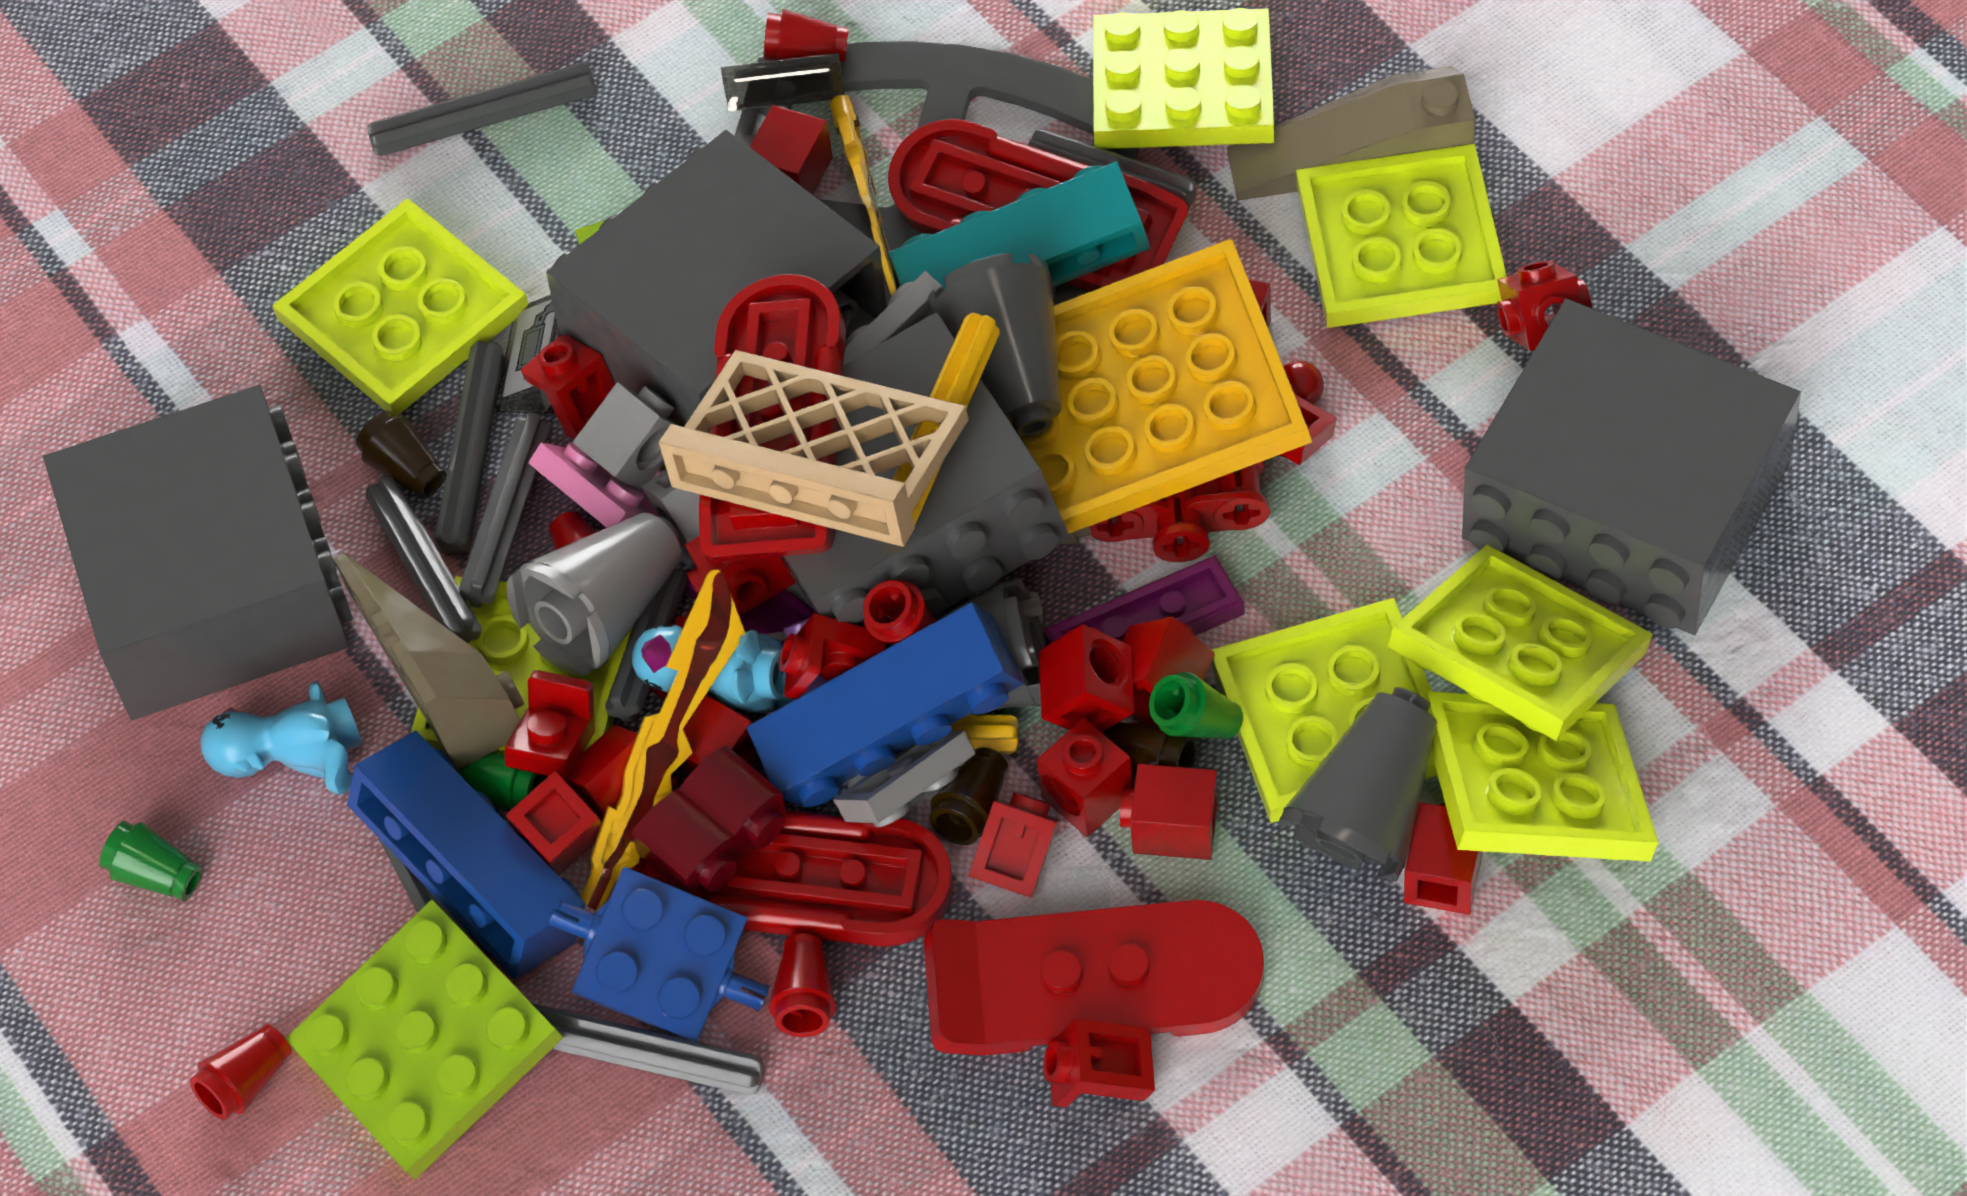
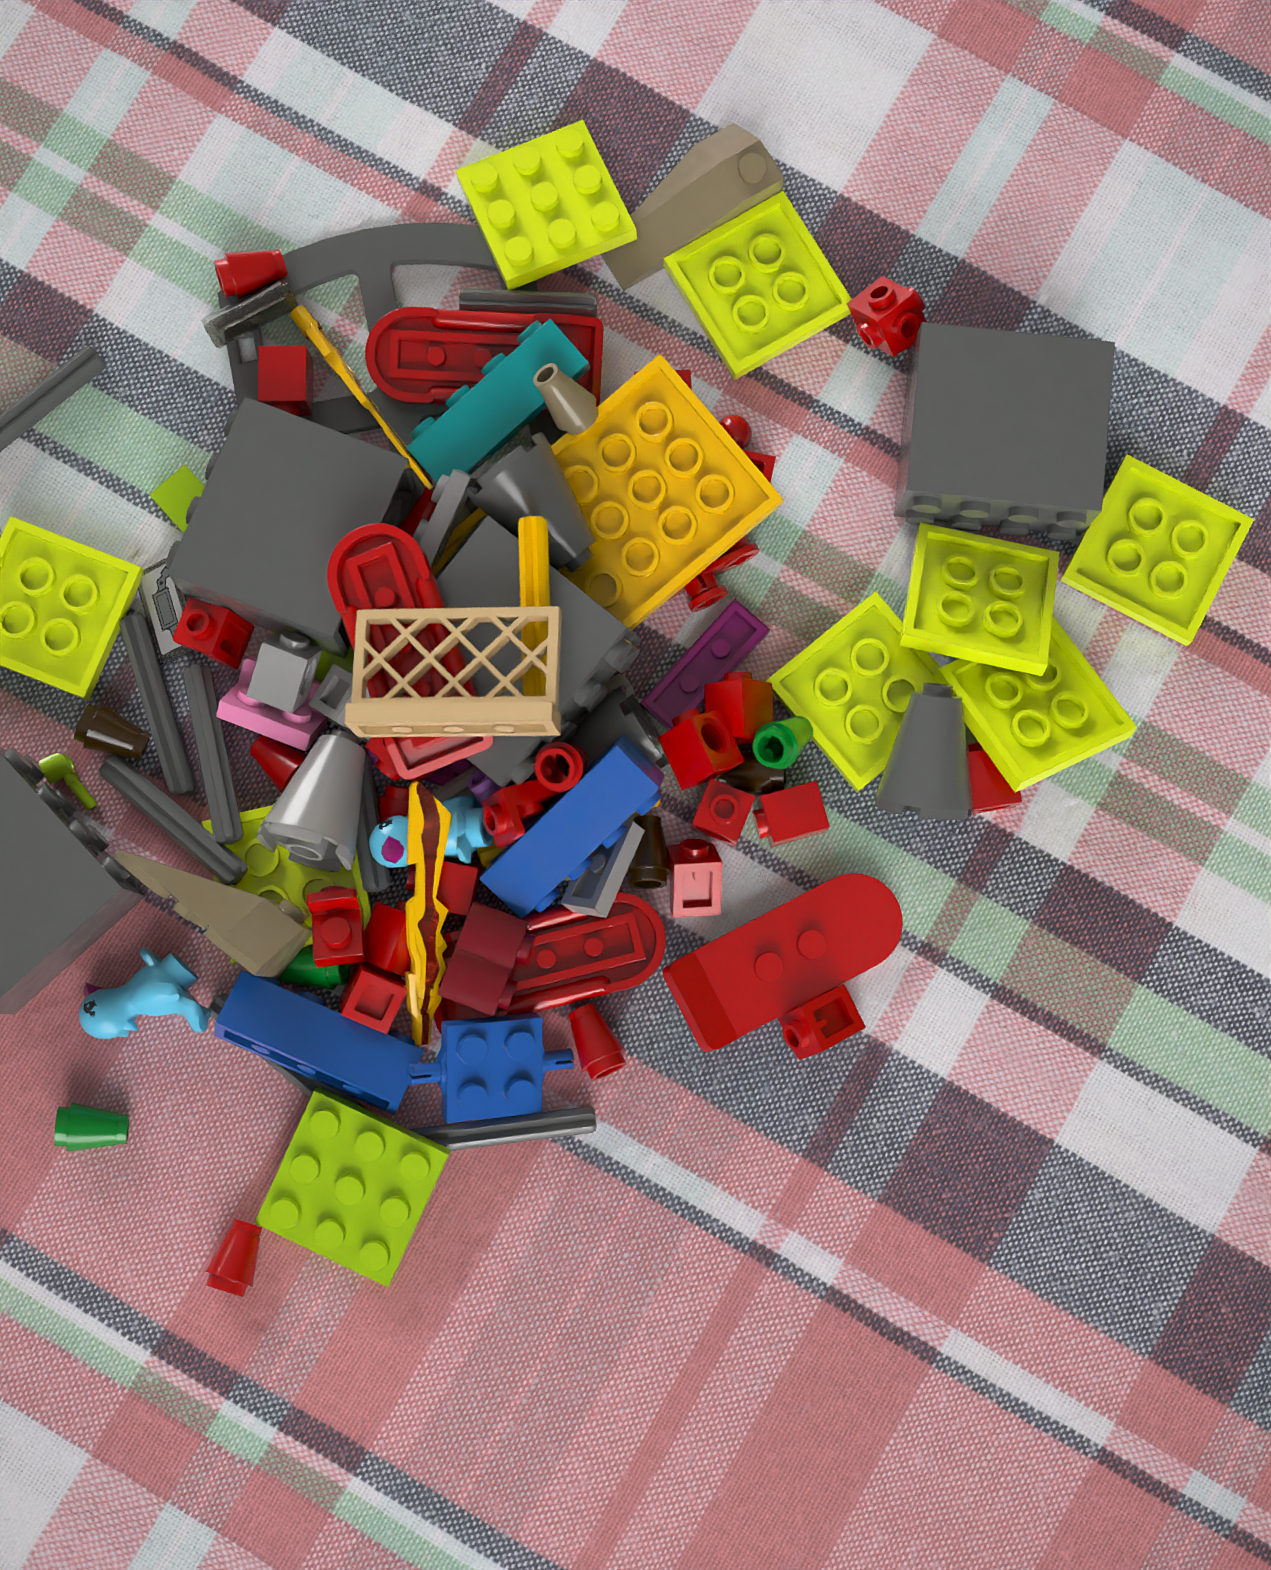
camera: 30 degrees left, 25 degrees up
(325, 474) = (62, 767): none -> lime hand
(1095, 249) = (566, 400): none -> dark tan cone
(1783, 674) = (1157, 550): none -> neon yellow plate

